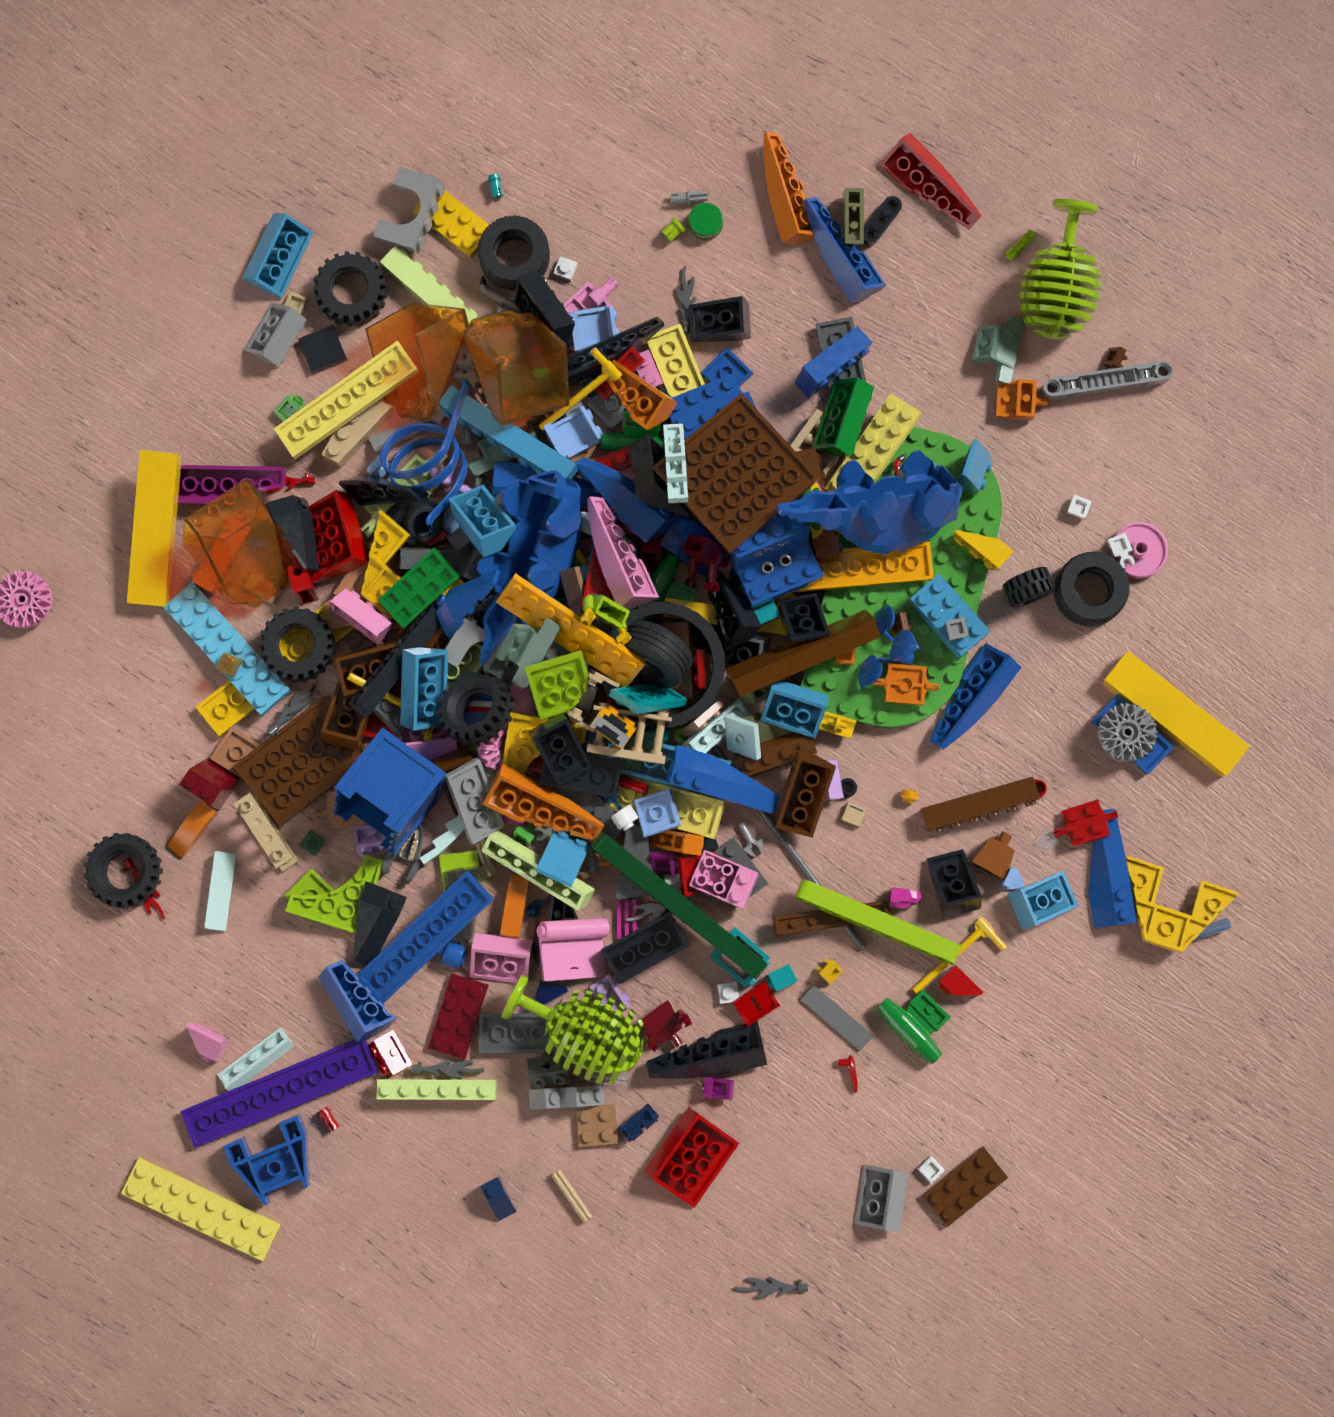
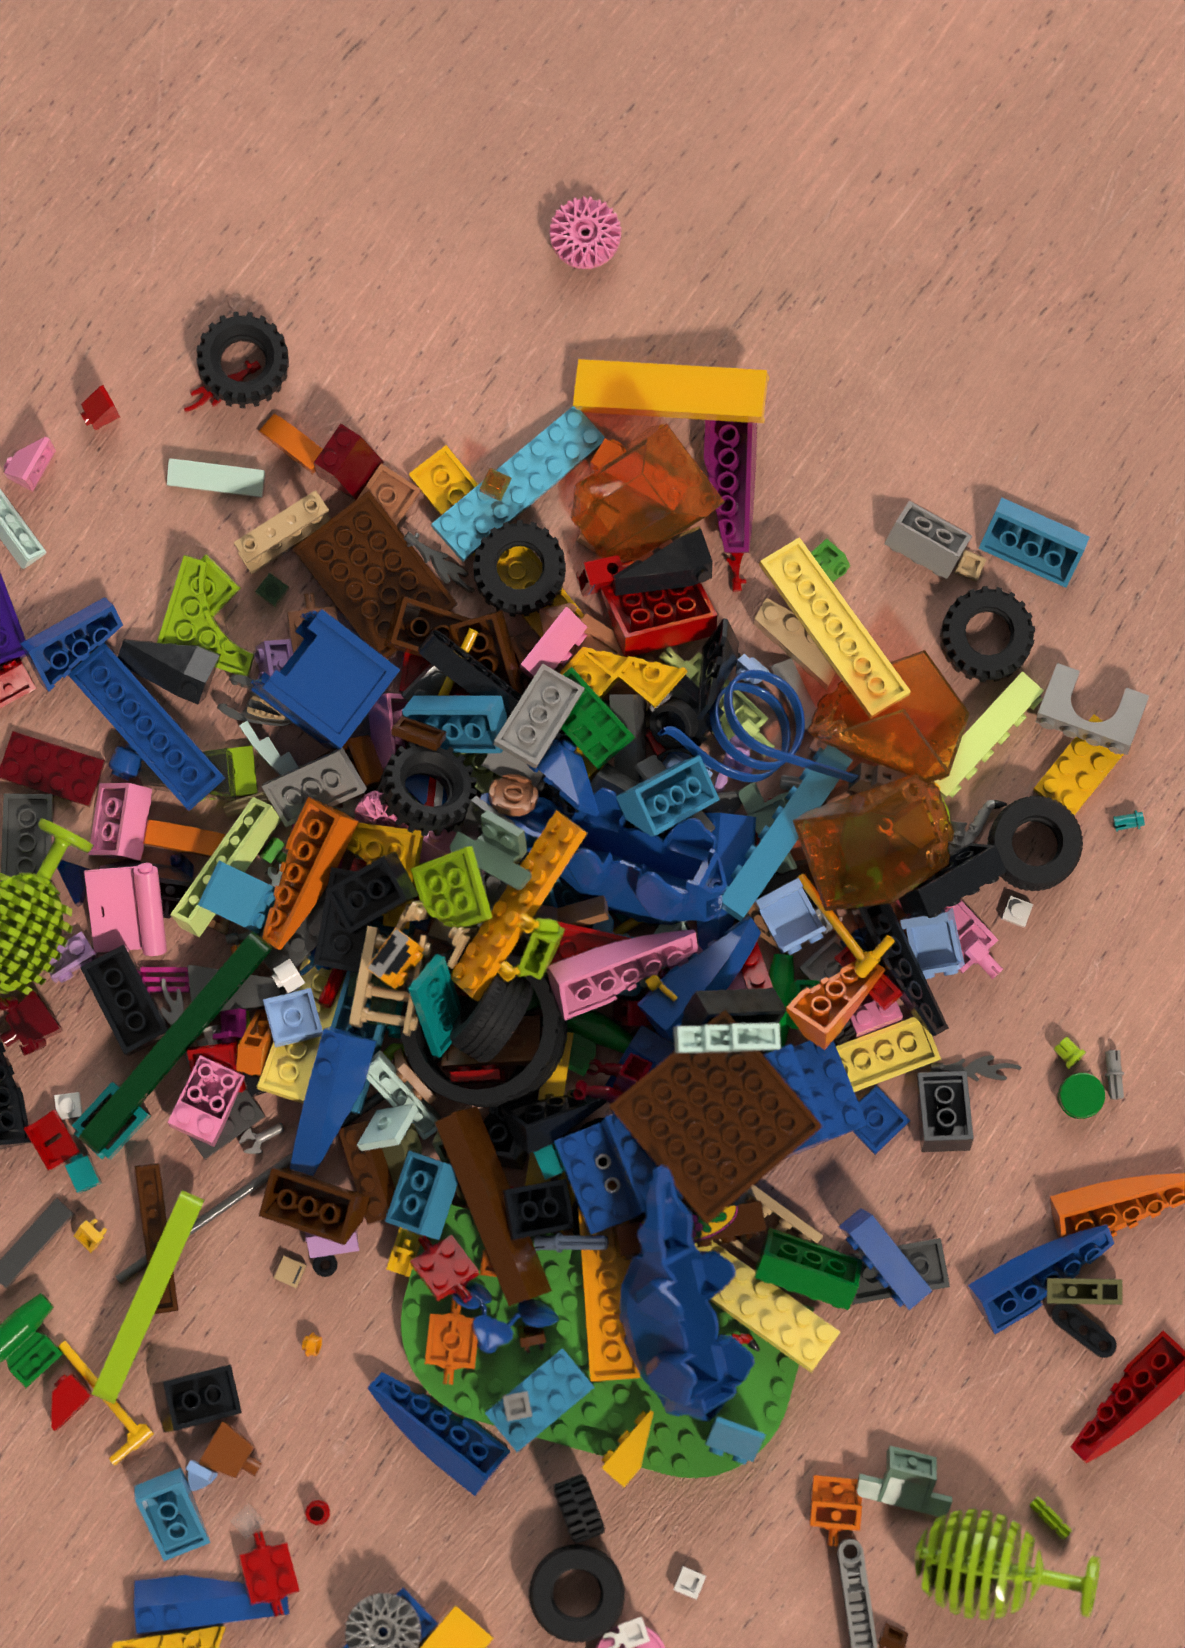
camera: 90 degrees right, 0 degrees up
(162, 985) = (99, 409): none -> red slope
(322, 349) = (909, 600): black tile -> none
(418, 620) = (539, 716): none -> light grey plate
(432, 716) = (418, 733): none -> reddish brown tile
(482, 639) = (513, 795): none -> nougat tile
(628, 530) = (654, 982): none -> yellow hand
(828, 594) = (559, 1242): none -> sand blue axle
(850, 690) = (444, 1268): none -> red plate
(903, 898) = (179, 1332): dark pink rock -> none
(979, 804) = (296, 1435): reddish brown brick -> none

